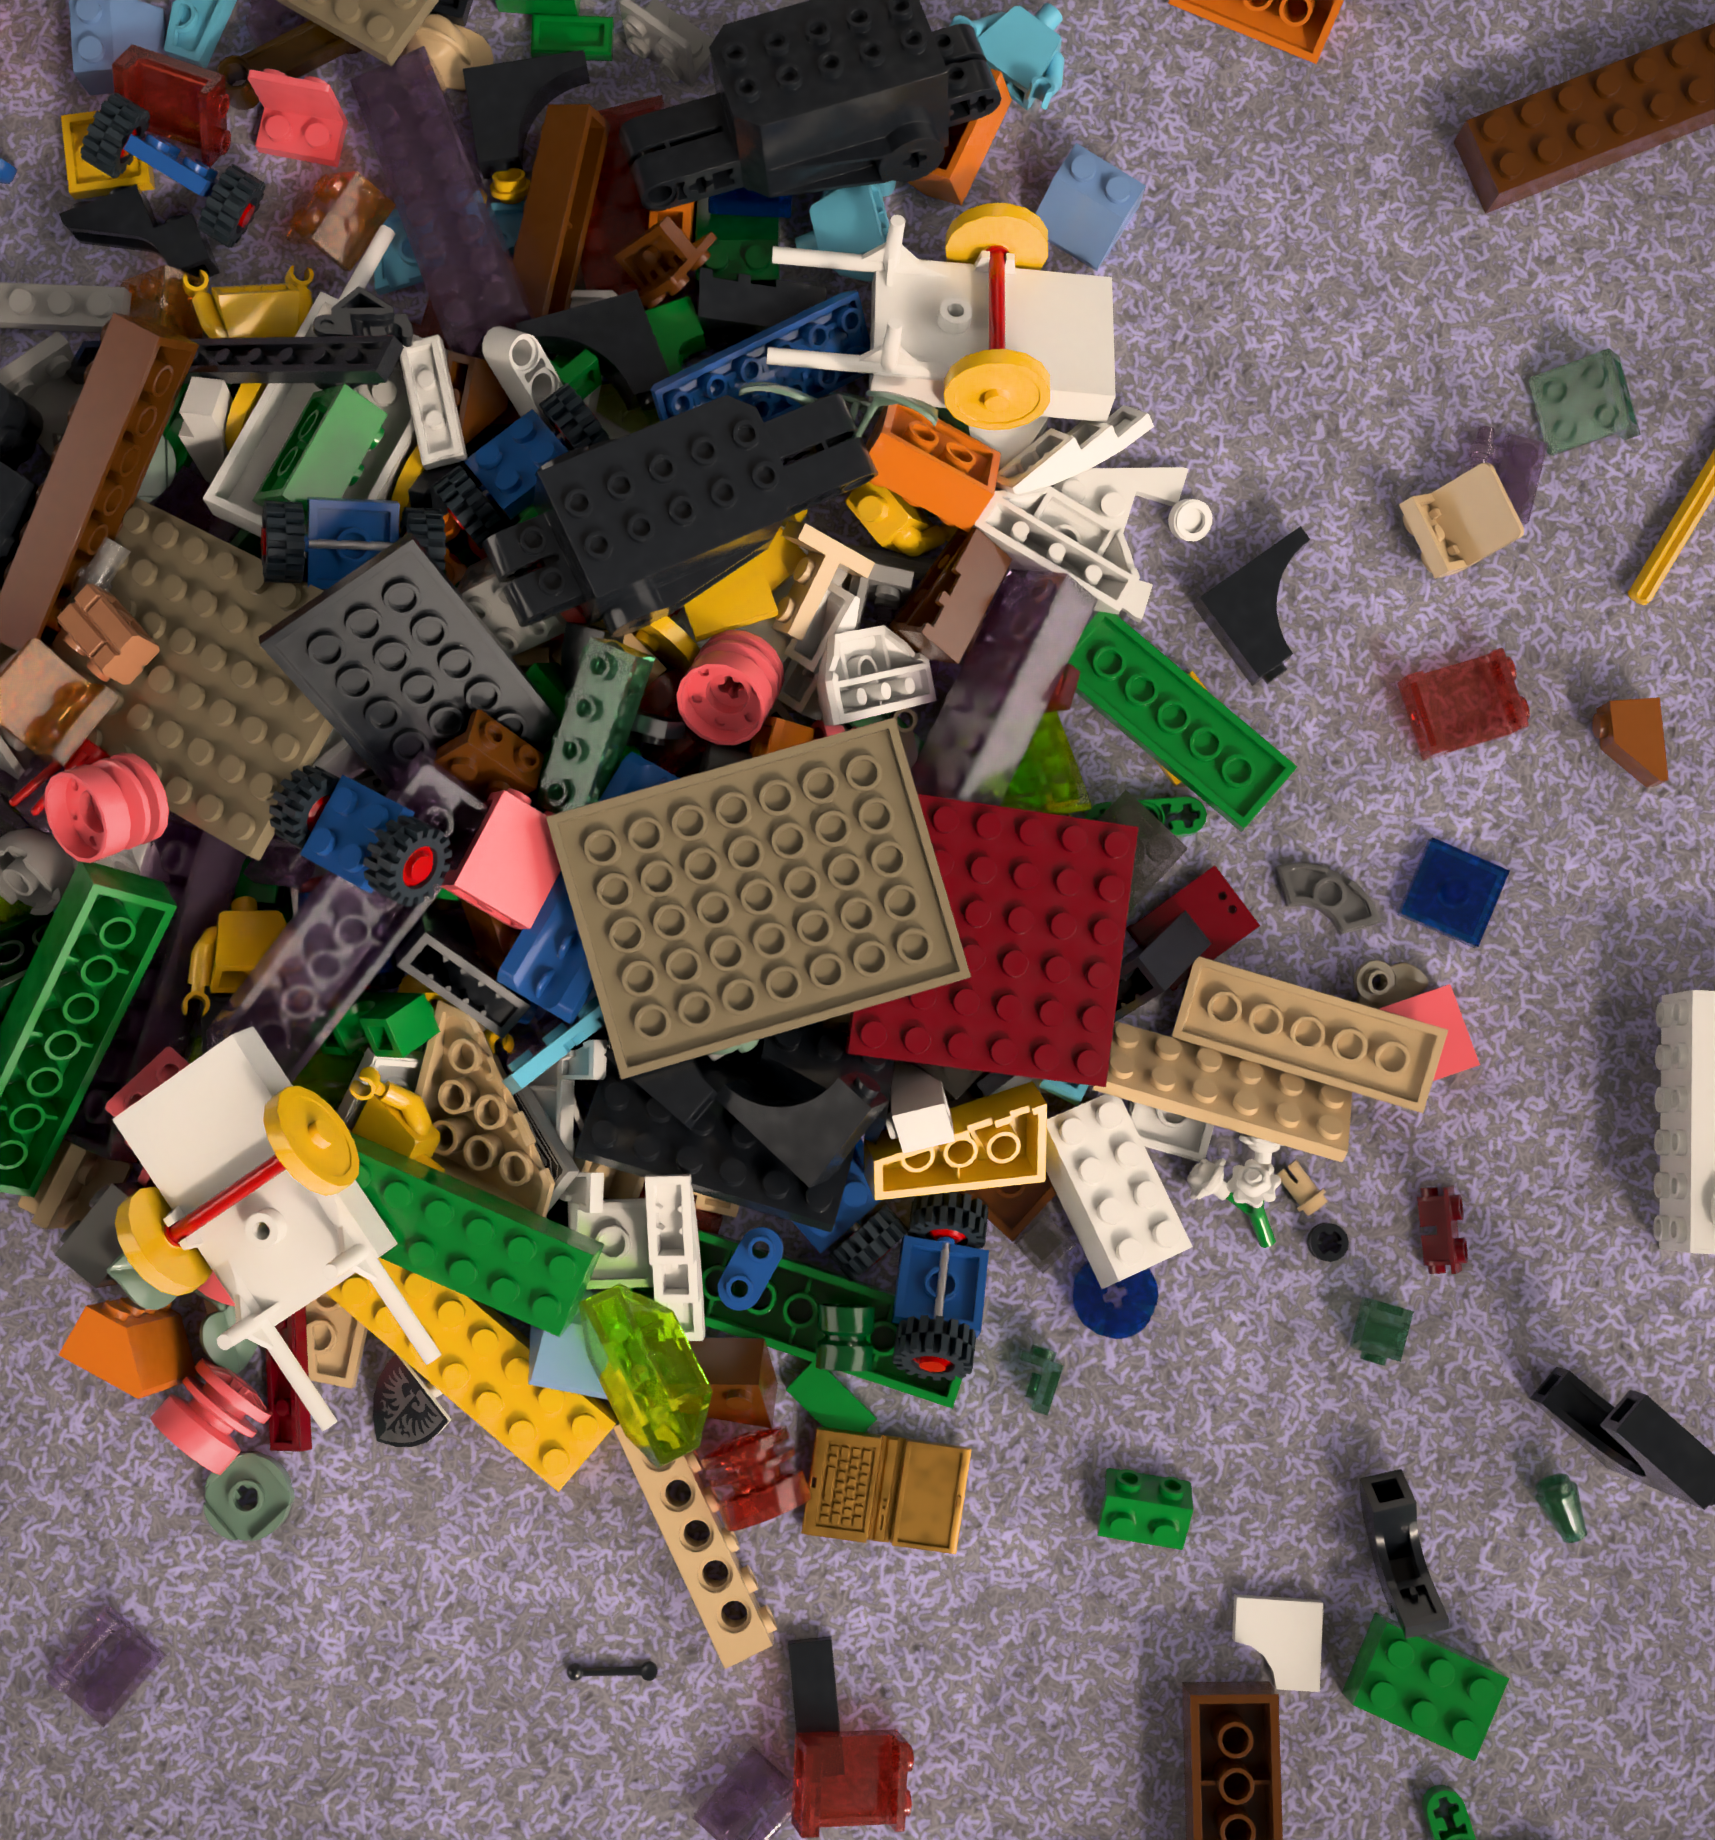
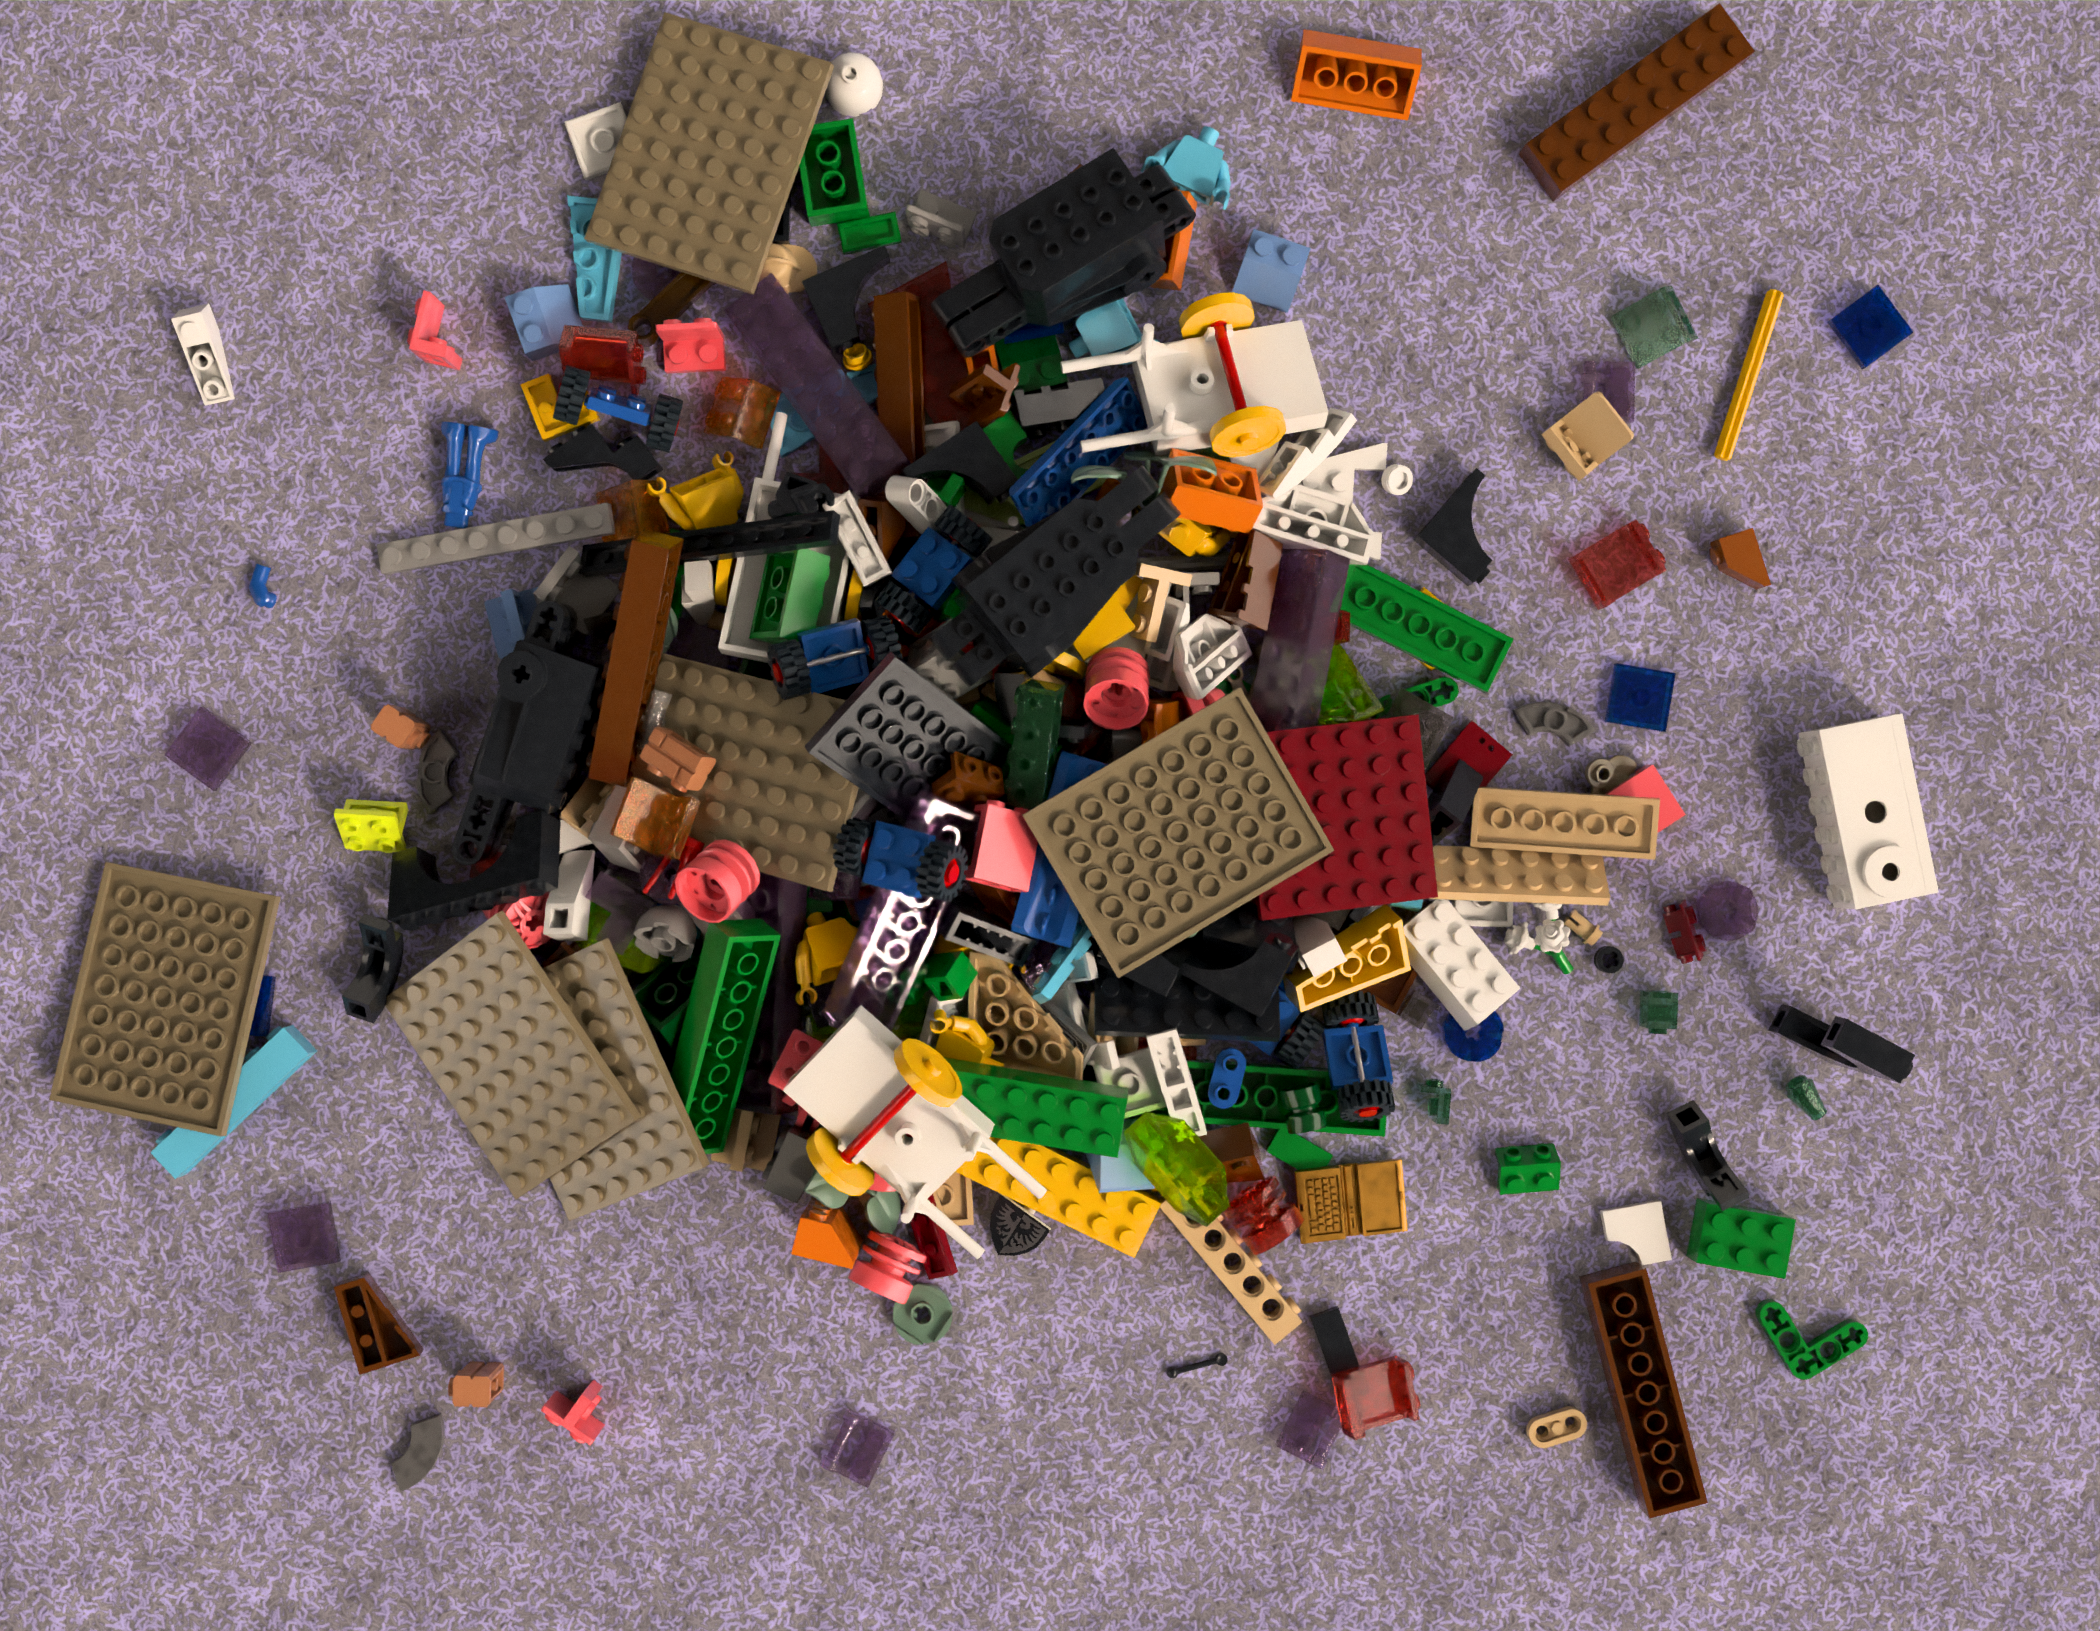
camera: 15 degrees left, 5 degrees up
(1529, 1201) = (1744, 913): none -> clear purple plate

